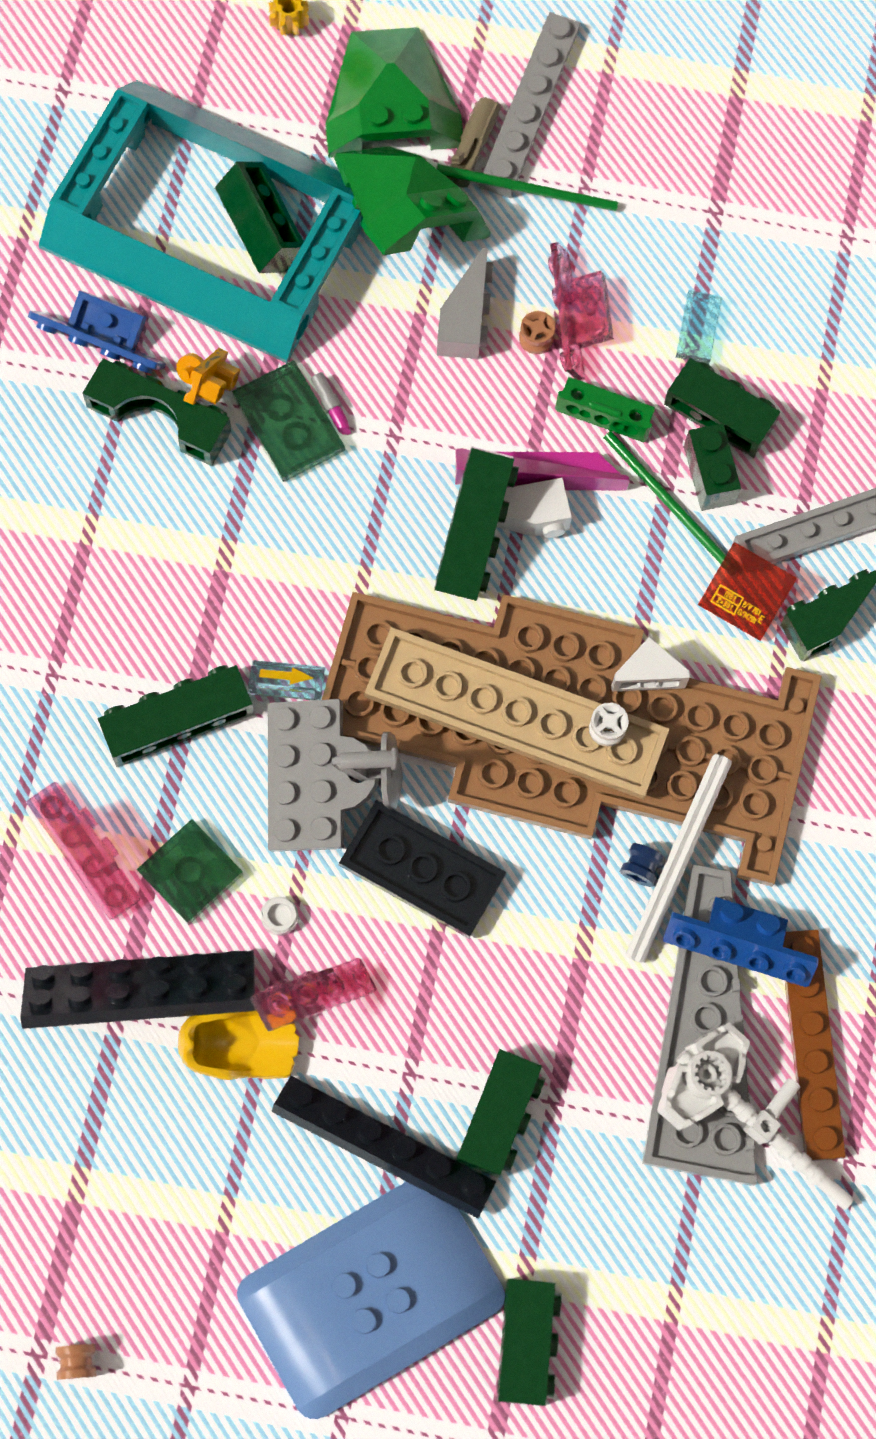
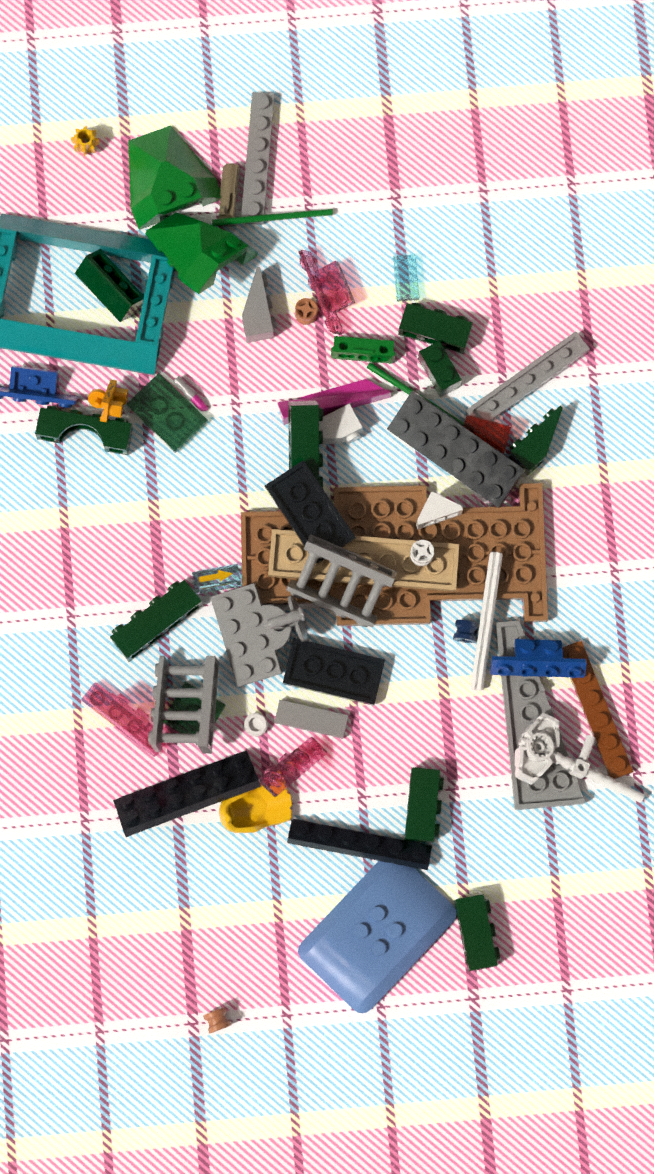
camera: 15 degrees left, 5 degrees up
(202, 877) = (204, 716): none -> light grey fence
(366, 931) = (311, 719): none -> light grey tile
(455, 616) = (308, 507): none -> black plate
(506, 718) = (359, 567): none -> light grey fence
(704, 589) = (456, 449): none -> black plate

